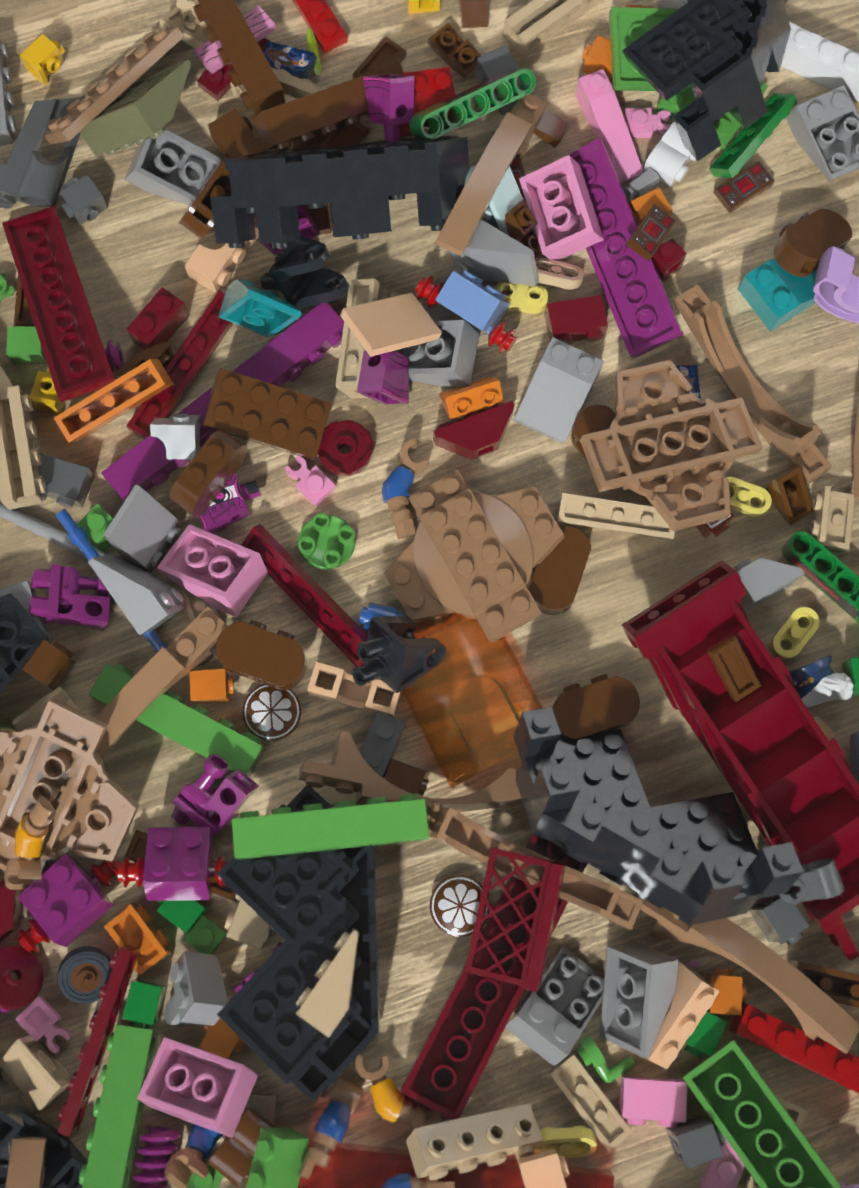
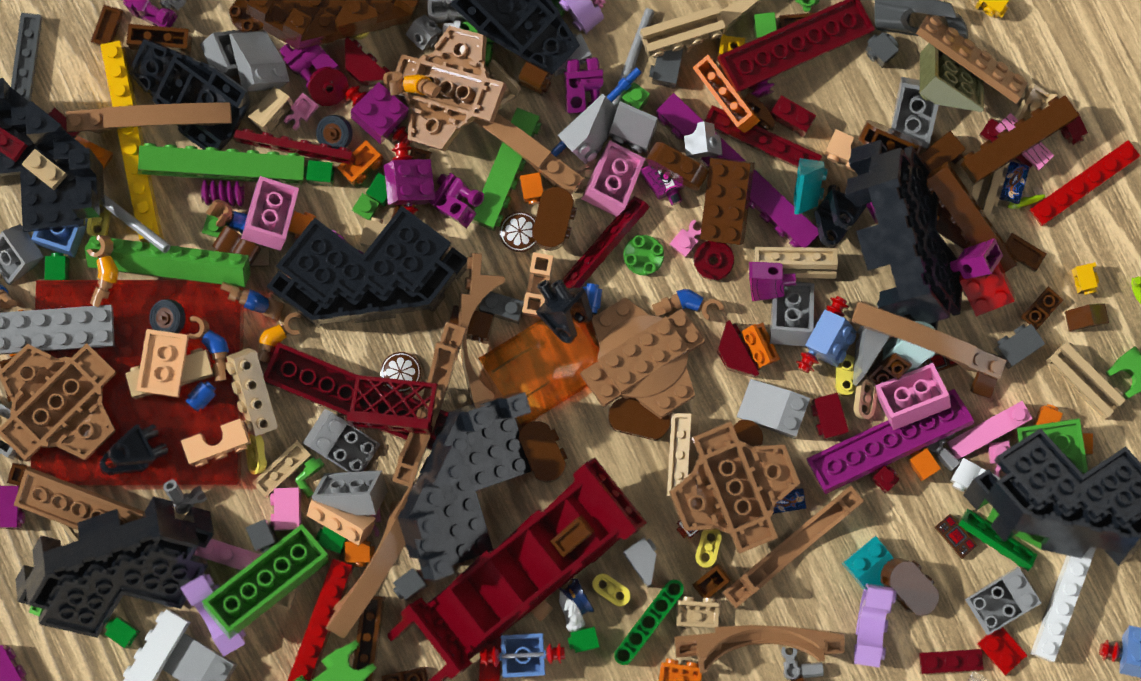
camera: 90 degrees right, 5 degrees up
(197, 990) = (331, 204): light grey brick -> none
(330, 828) = (436, 274): bright green brick -> none
(332, 994) = (332, 287): tan slope -> none
(390, 324) = (802, 279): light nougat tile -> none
(484, 103) = (983, 311): green beam -> none
(650, 232) = (899, 462): tile -> none
(817, 881) = (432, 596): dark grey piece -> none

